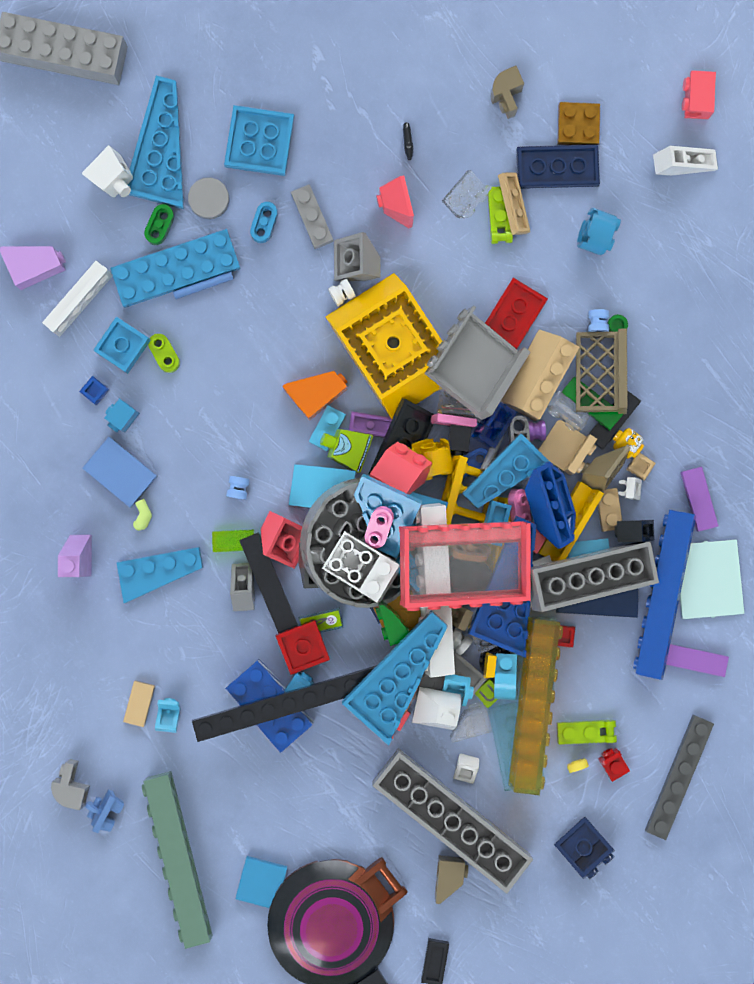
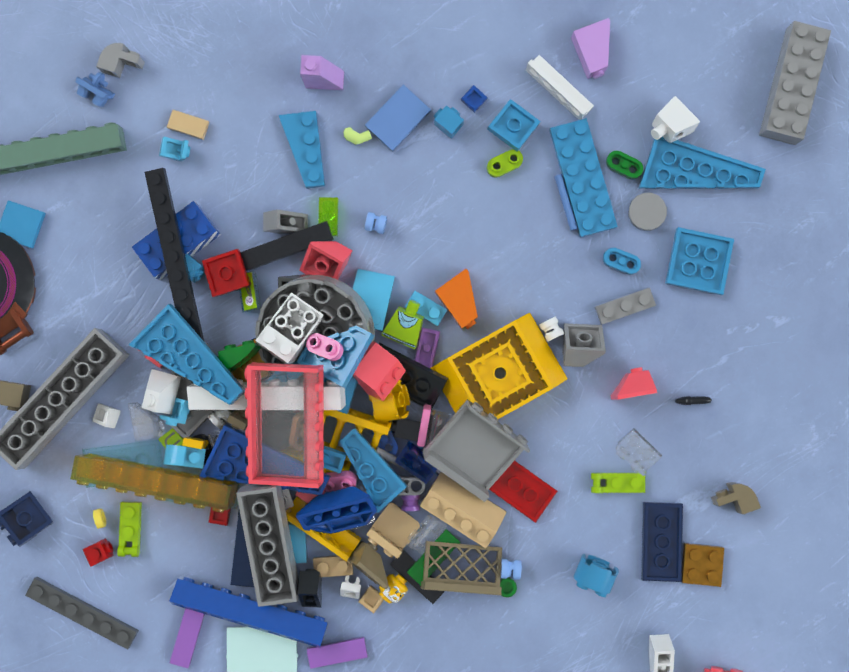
camera: 105 degrees right, 0 degrees up
(514, 203) = (627, 496): tan tile -> none

